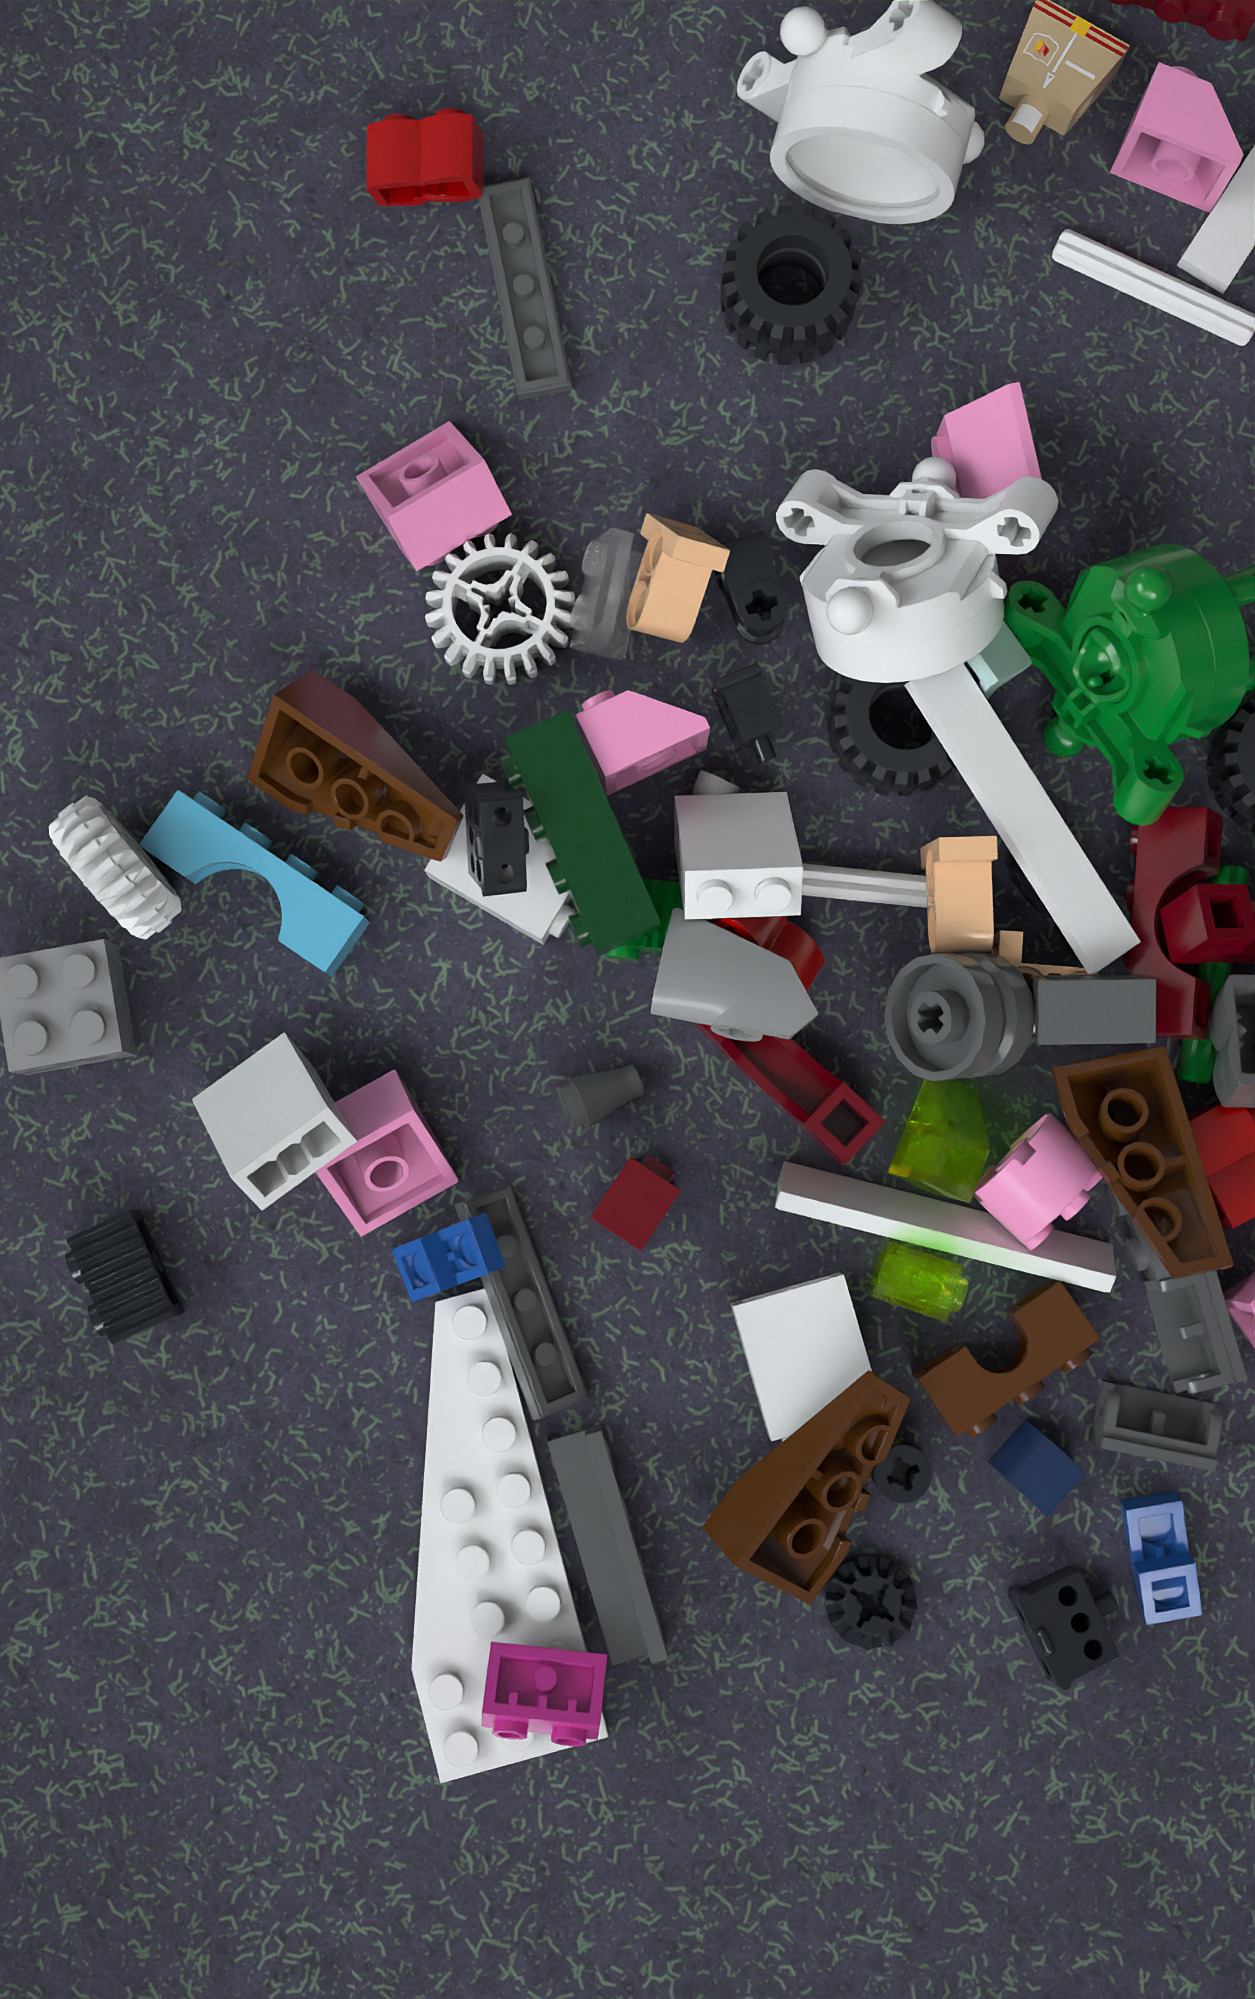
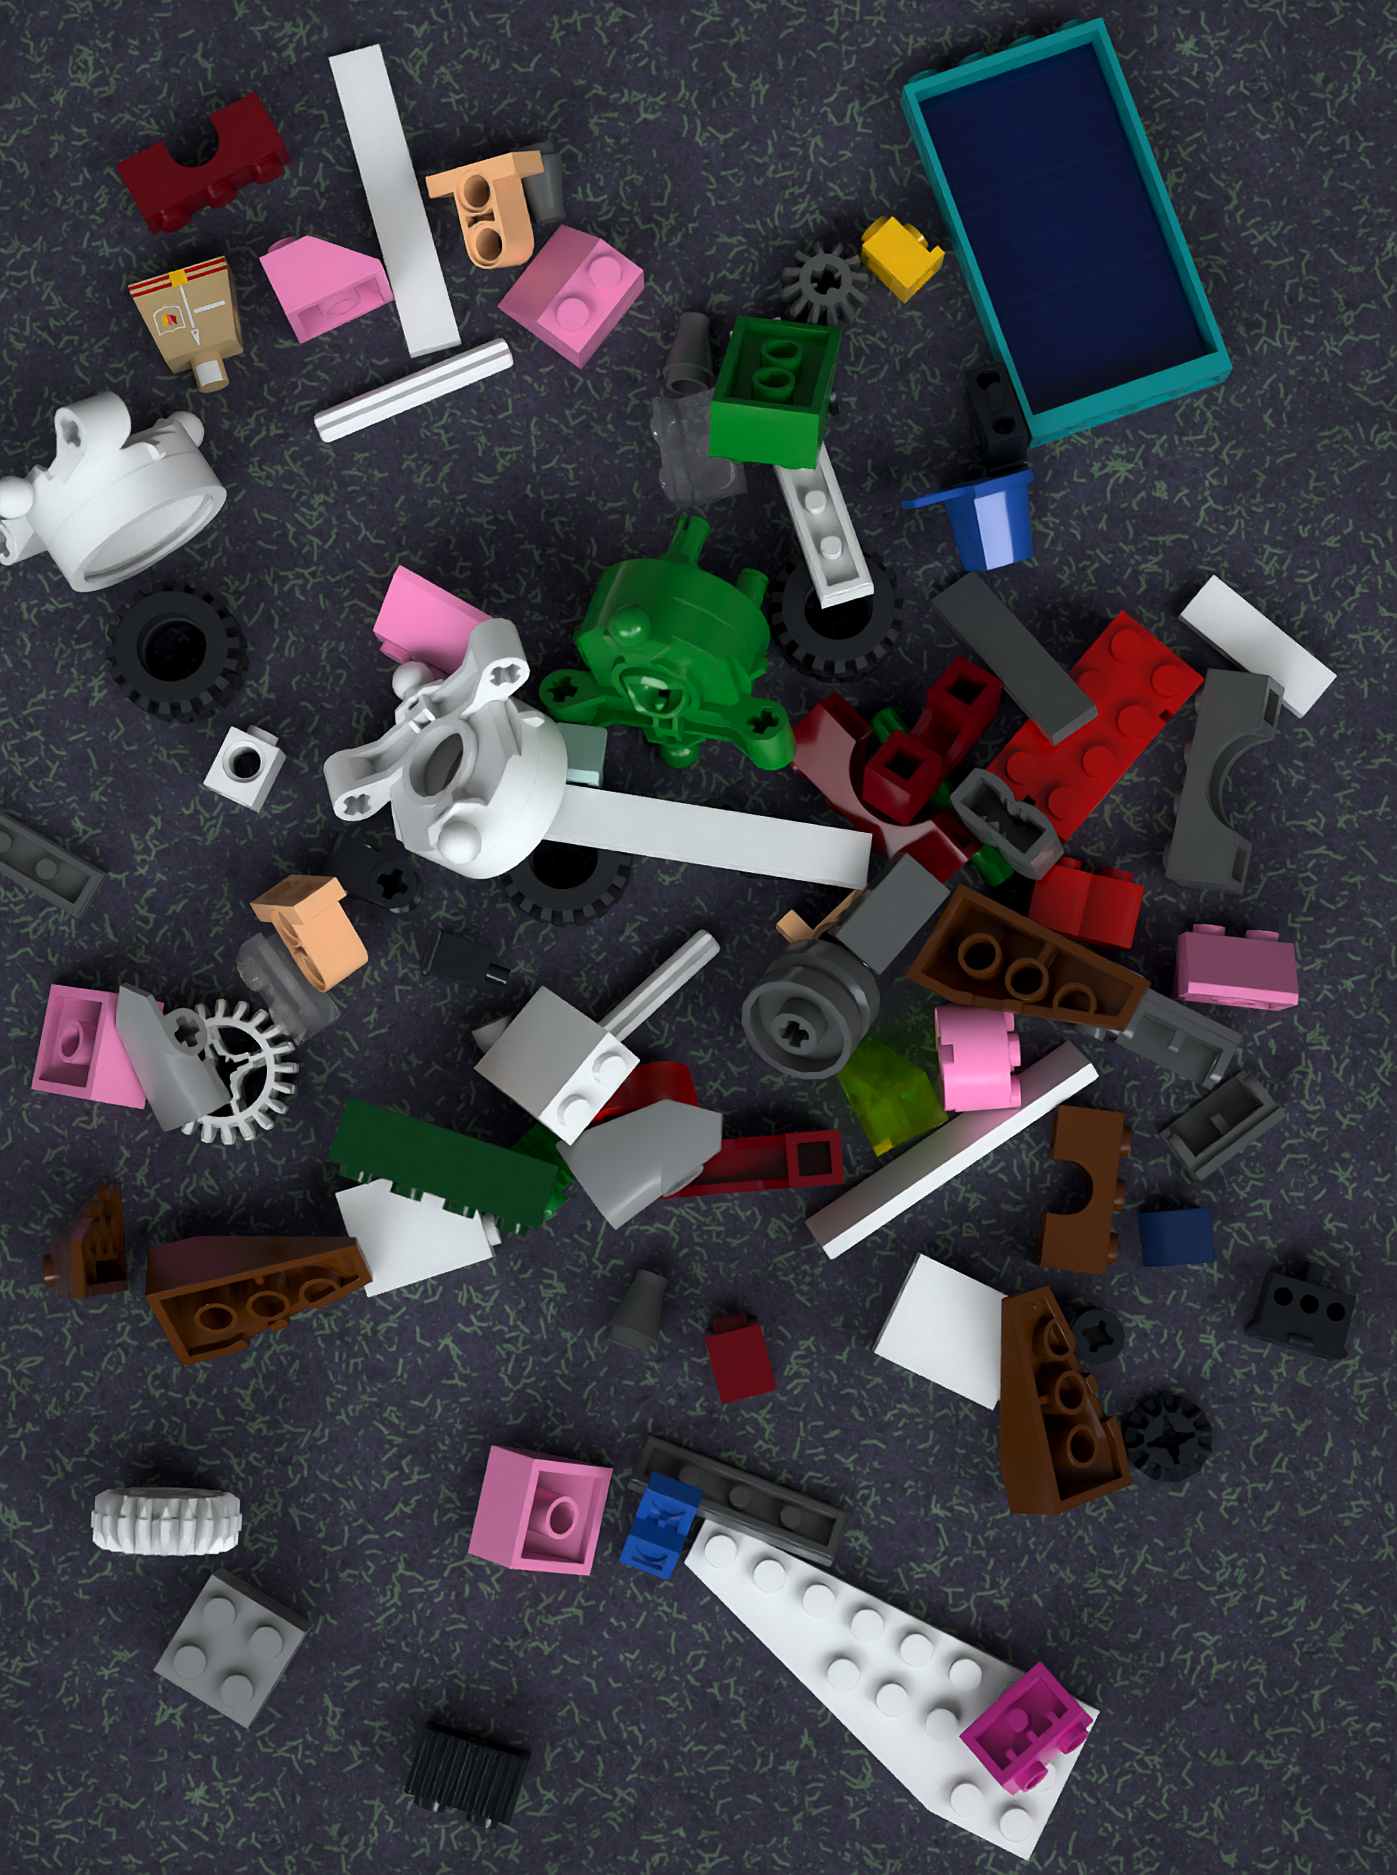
camera: 45 degrees left, 0 degrees up
(199, 843) = (198, 1443): medium azure arch -> none
(273, 1121) = (452, 1567): white brick -> none
(275, 624) = (90, 1249): none -> reddish brown wedge
(471, 545) = (167, 1058): none -> light grey panel
(496, 837) = (393, 1228): black piece -> none
(607, 1546) = (965, 1591): dark grey fence -> none
(637, 737) = (407, 1060): bright pink slope -> none
(734, 436) = (246, 791): none -> white brick
(918, 1281) = (971, 1205): clear neon green slope -> none
(959, 893) = (726, 930): light nougat tile -> none
(1161, 1557) = (1316, 1204): slope -> none

